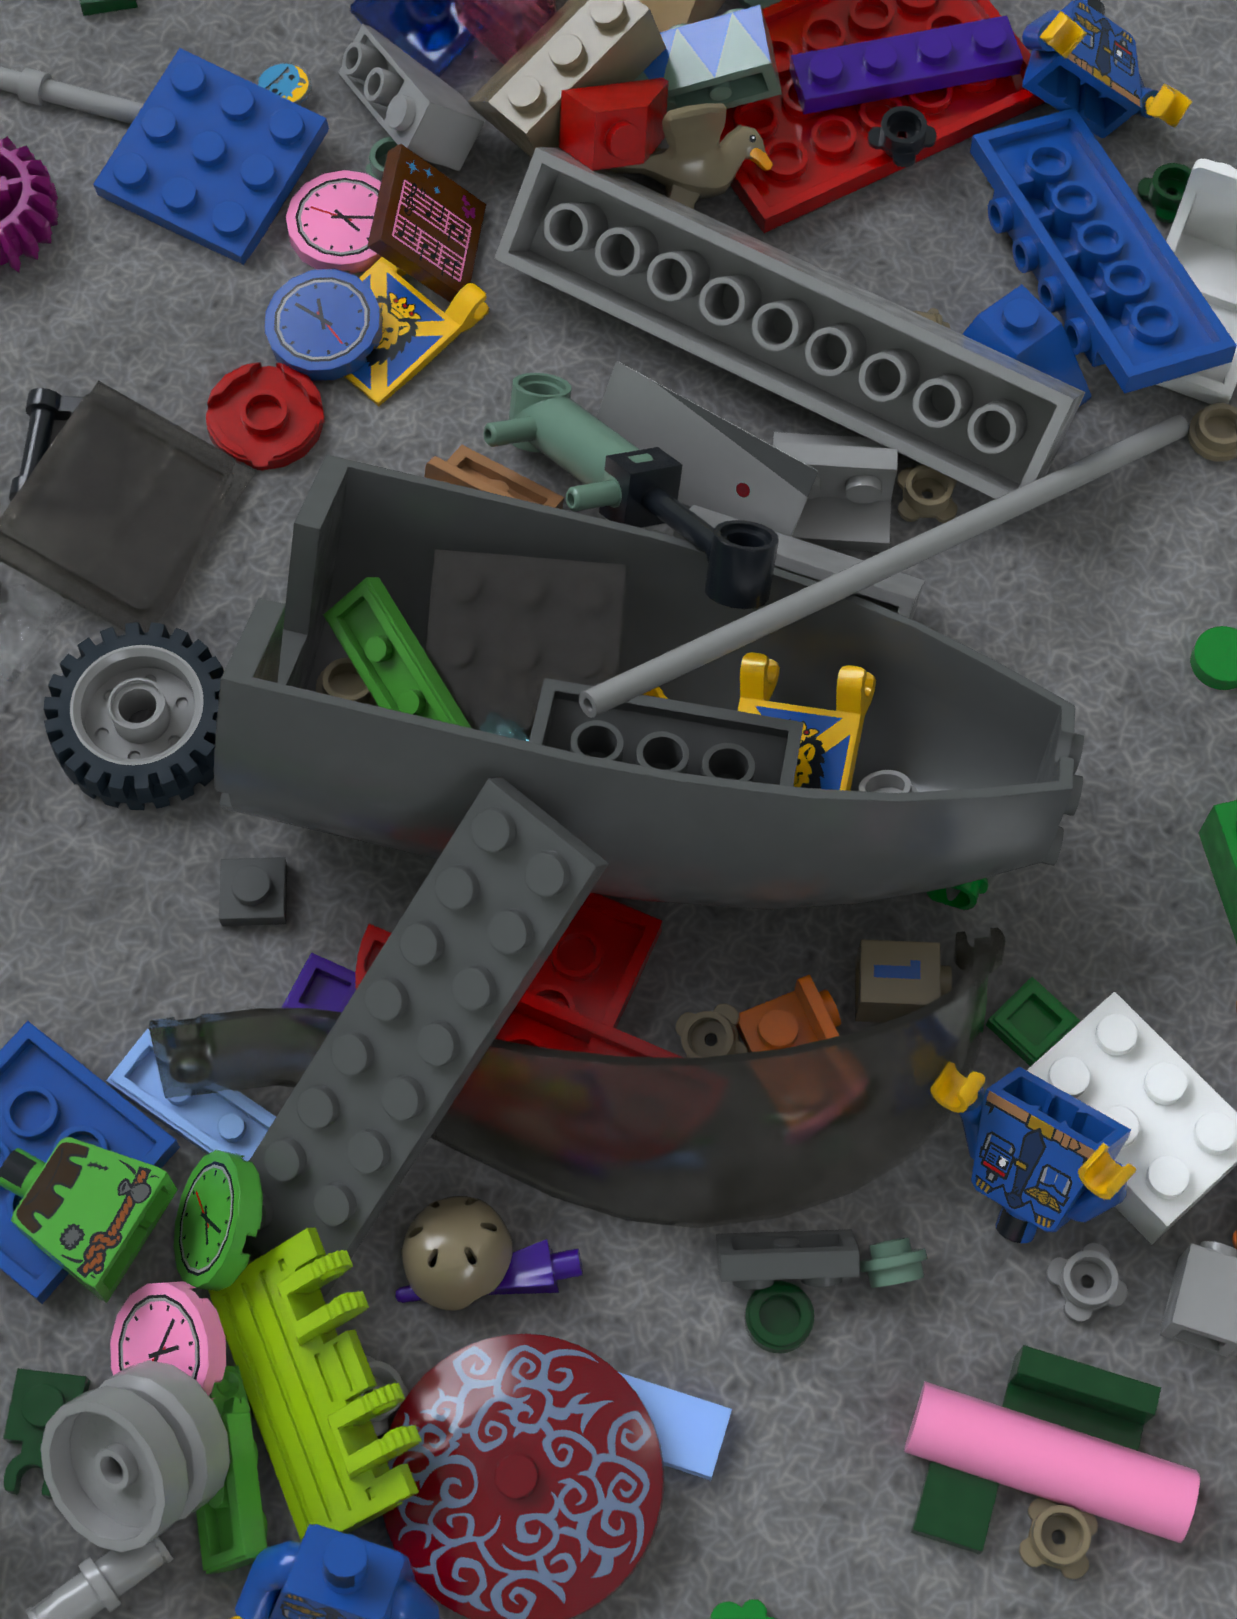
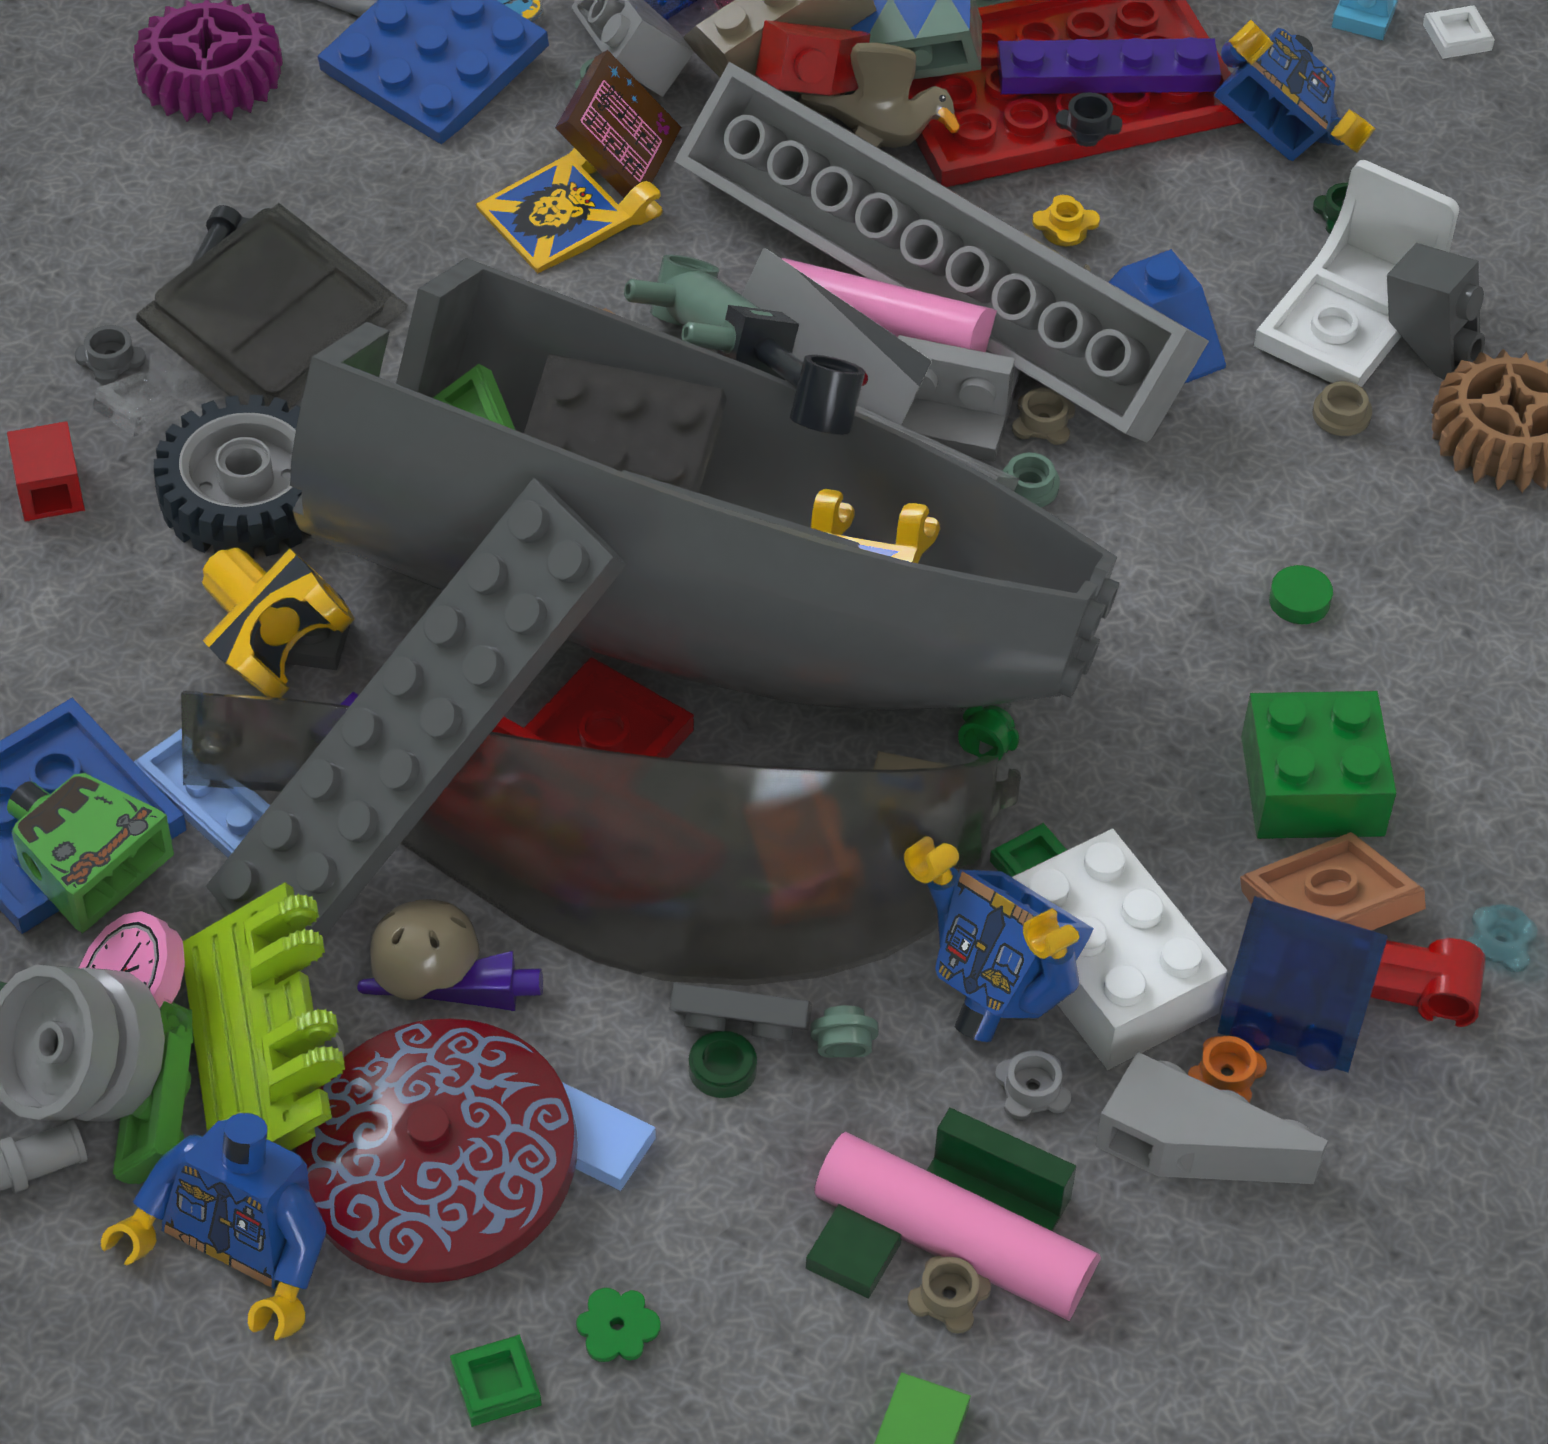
camera: 10 degrees right, 15 degrees down
(207, 890) = (267, 613): none -> yellow connector
(214, 1218) = (195, 887): bright green tile -> none
(271, 432) = (403, 271): red tile -> none
(323, 324) = (501, 196): blue tile -> none
(333, 221) = (526, 118): bright pink tile -> none
(764, 405) = (908, 310): none -> bright pink brick
(875, 569) = (969, 428): light grey piece -> none
(894, 265) = (1065, 221): none -> yellow plate
(949, 571) = (1038, 470): none -> sand green plate
(1097, 253) = (1253, 238): blue plate -> none

